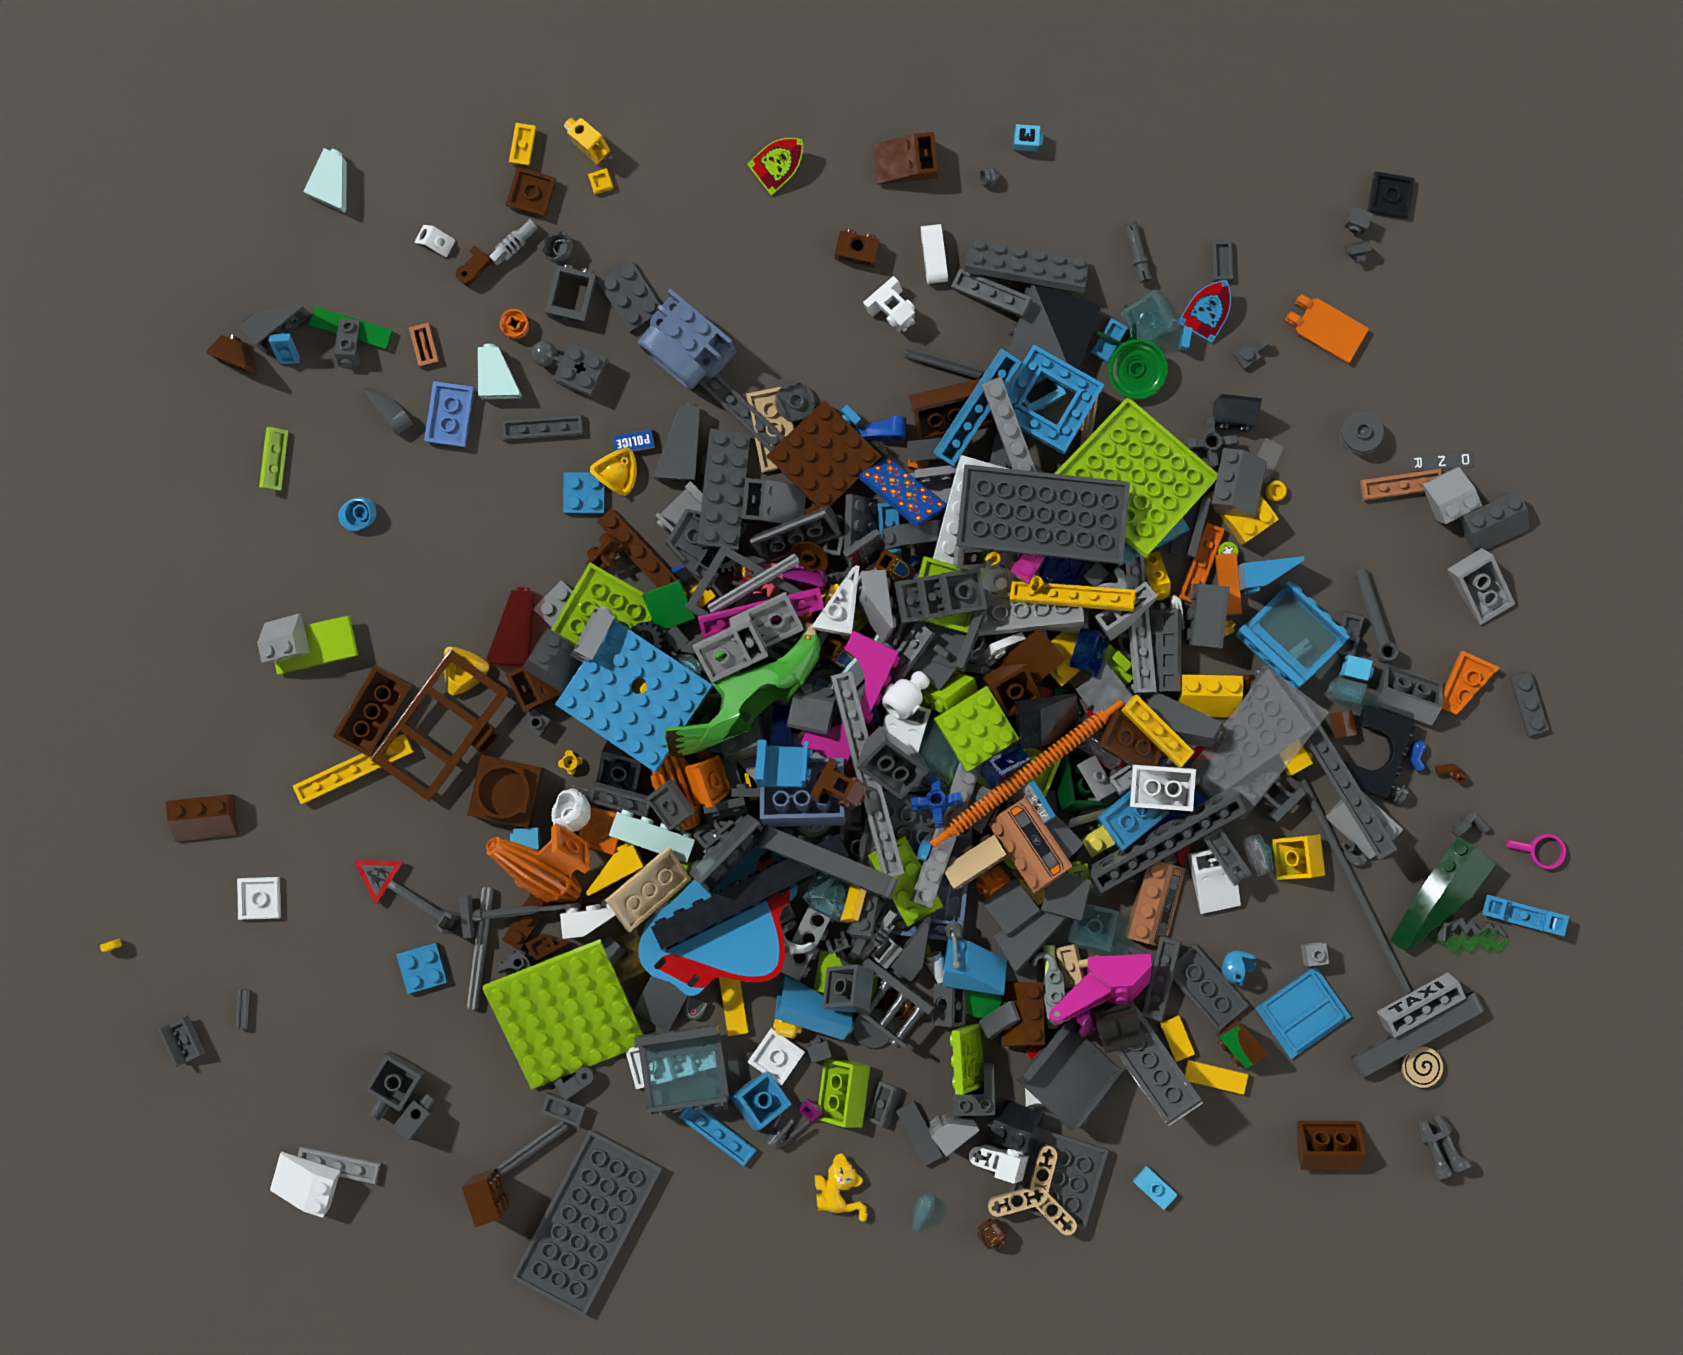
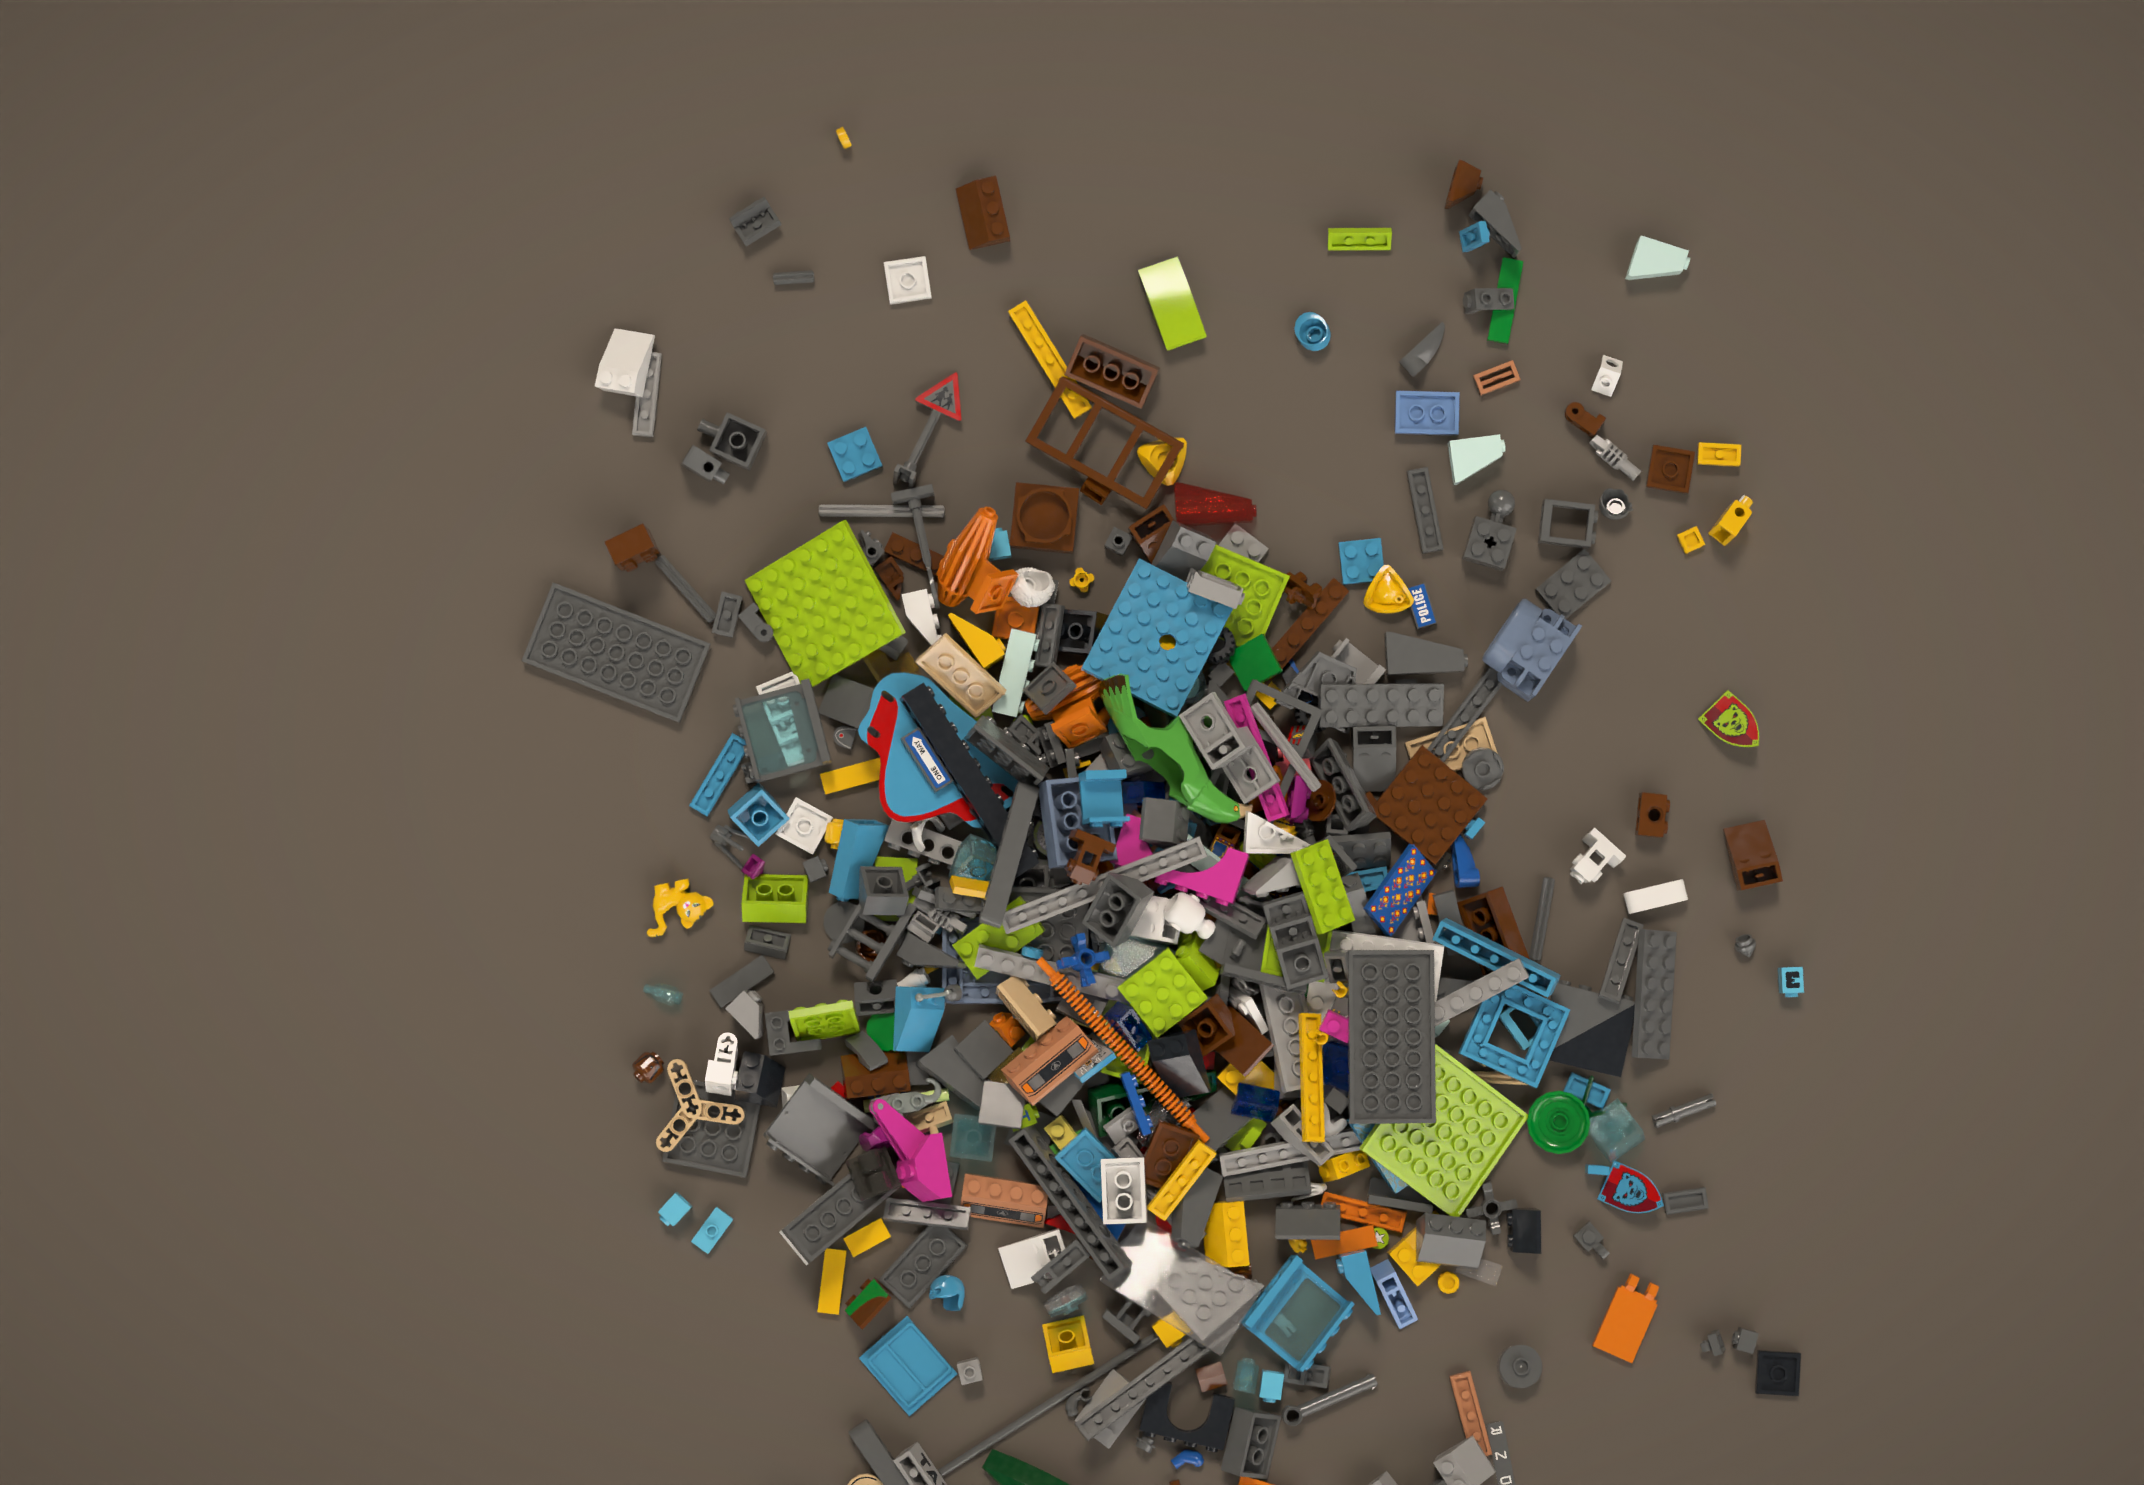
camera: 85 degrees right, 0 degrees up
(283, 639) = (1174, 273): light grey slope -> none
(522, 326) = (1525, 476): orange wheel -> none
(726, 931) = (926, 759): none -> tile
(892, 563) = (1322, 886): none -> lime plate
(1079, 765) = (1136, 1102): none -> blue plate
(1132, 1222) = (674, 1209): none -> medium azure brick
(1282, 543) = (1393, 1294): none -> medium blue slope
(1330, 1145) = (775, 1407): reddish brown slope -> none

